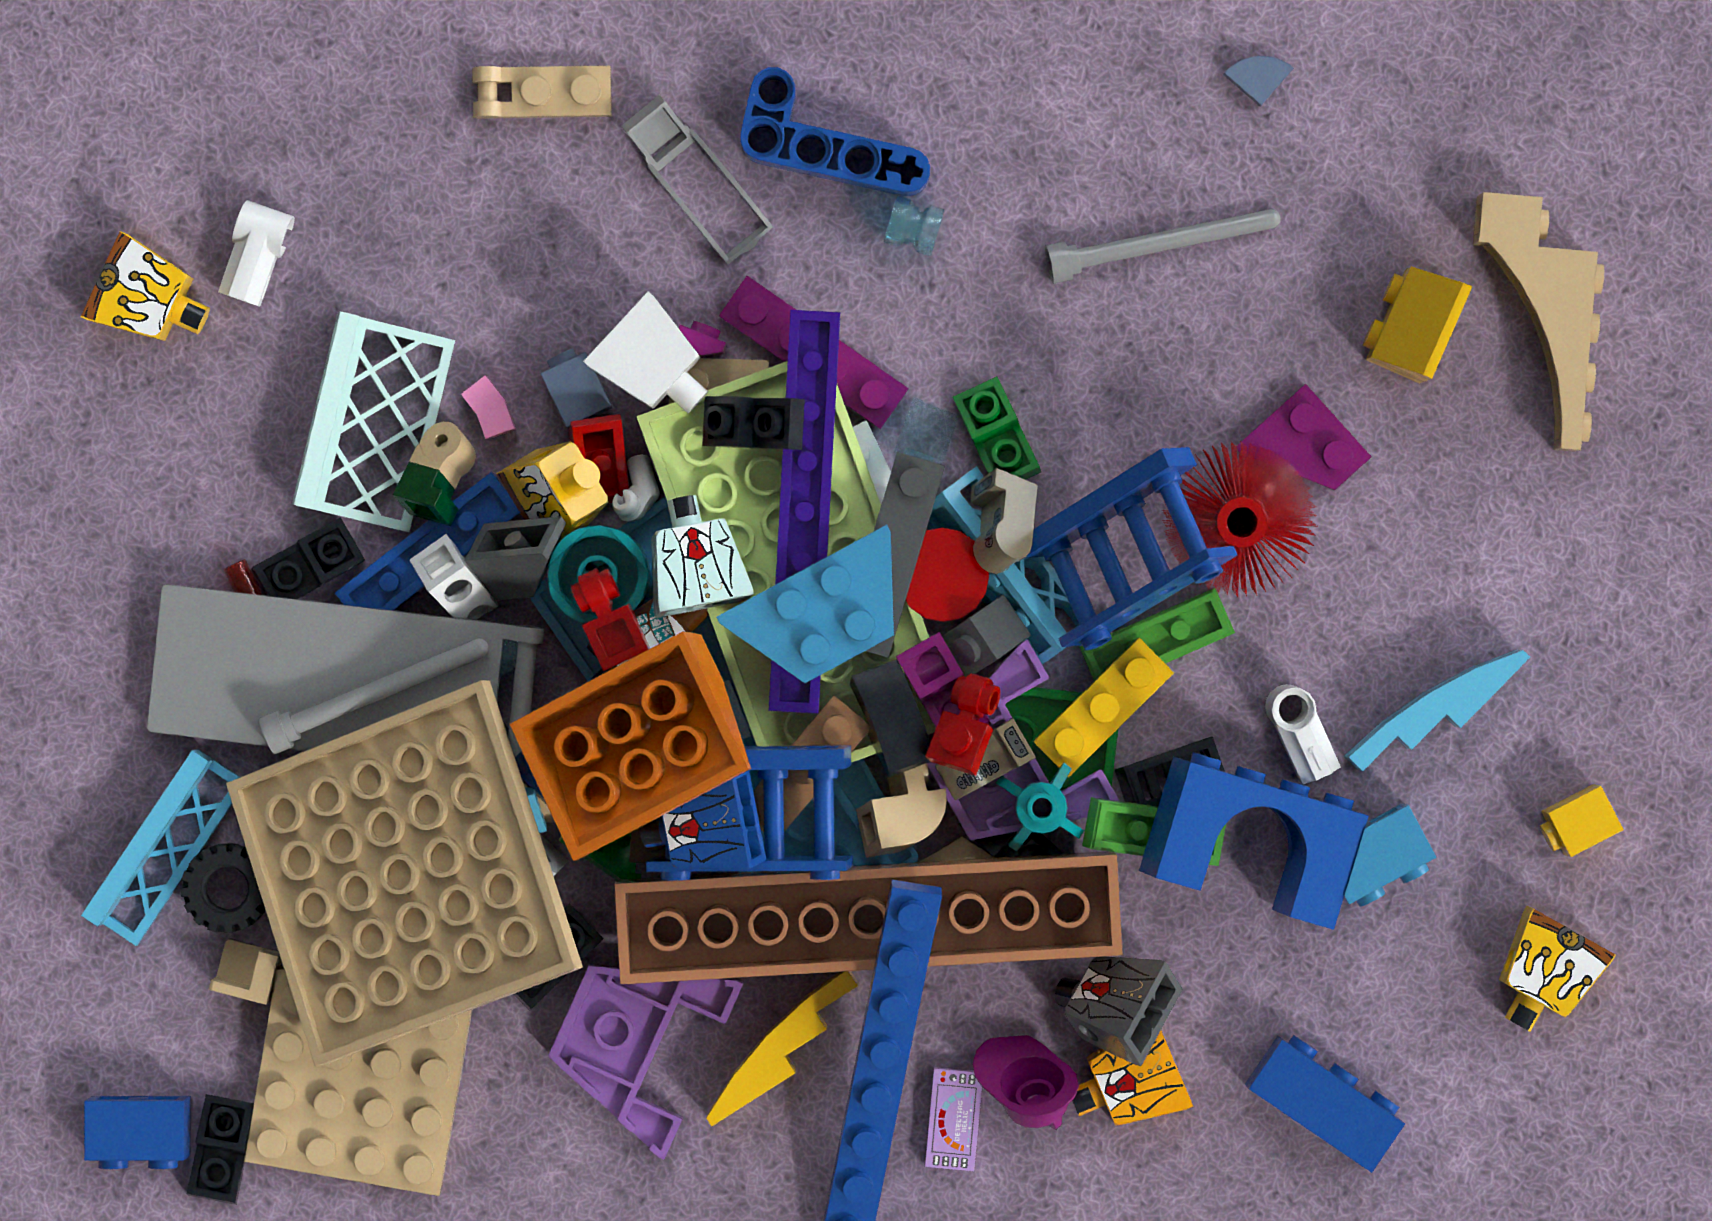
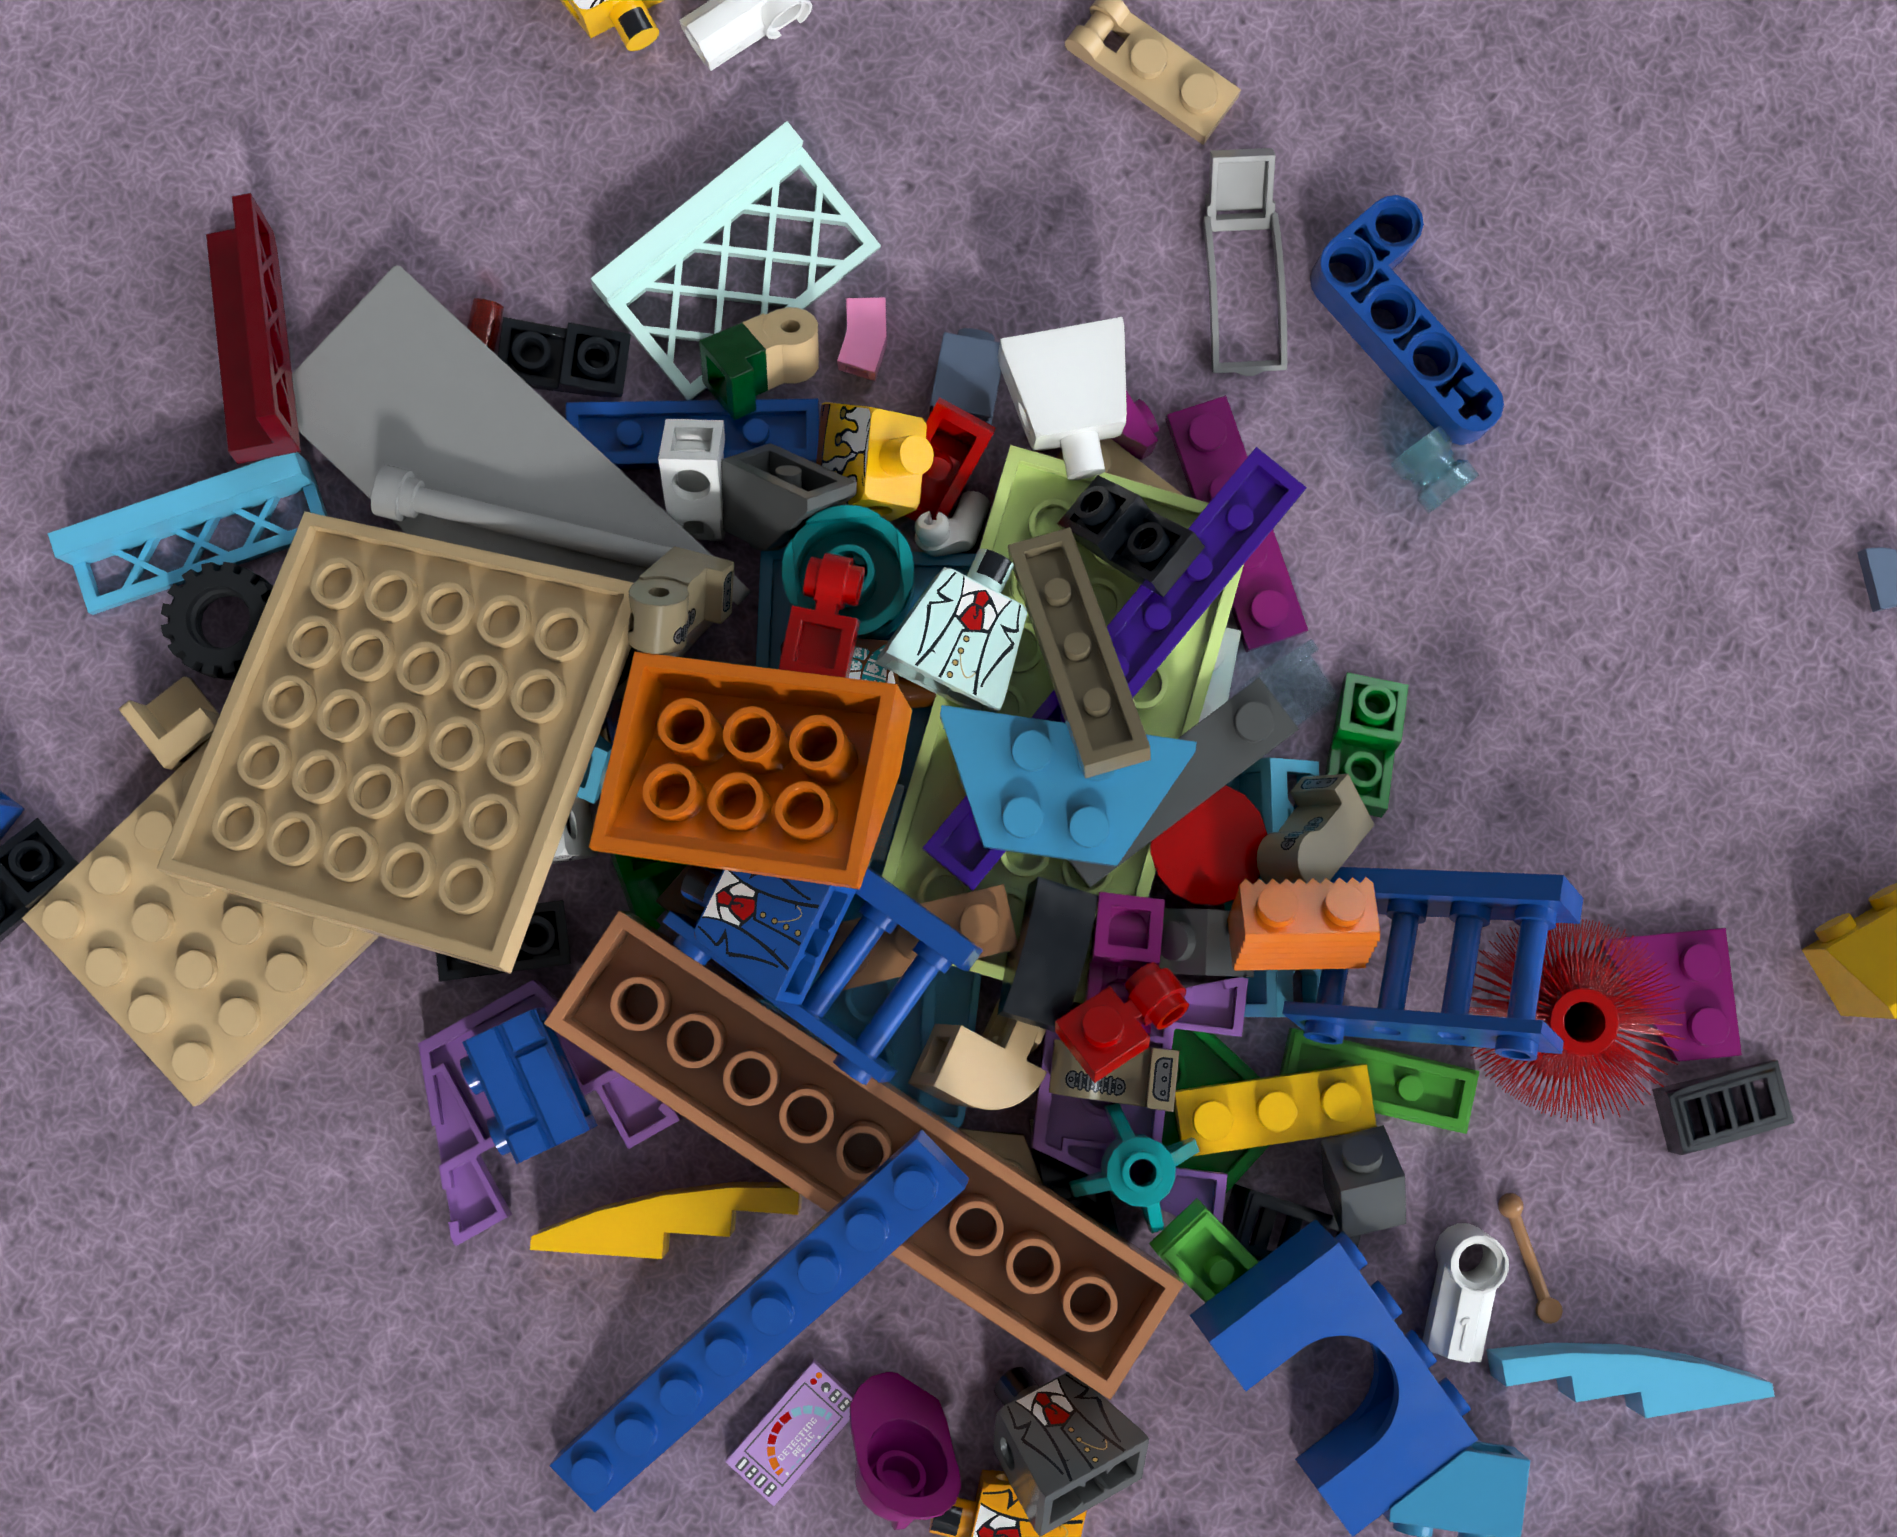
camera: 25 degrees right, 5 degrees down
(108, 699) = (252, 337): none -> dark red fence
(506, 668) = (677, 597): none -> dark tan leg
(636, 1030) = (526, 1085): none -> blue brick
(774, 523) = (1079, 653): none -> dark tan plate
(1033, 587) = (1303, 925): none -> orange brick
(1069, 260) = (1570, 622): light grey piece -> none
(1189, 711) = (1364, 1181): none -> dark grey brick
(1361, 529) = (1676, 1118): none -> black slope
(1363, 702) = (1547, 1308): none -> medium nougat hinge

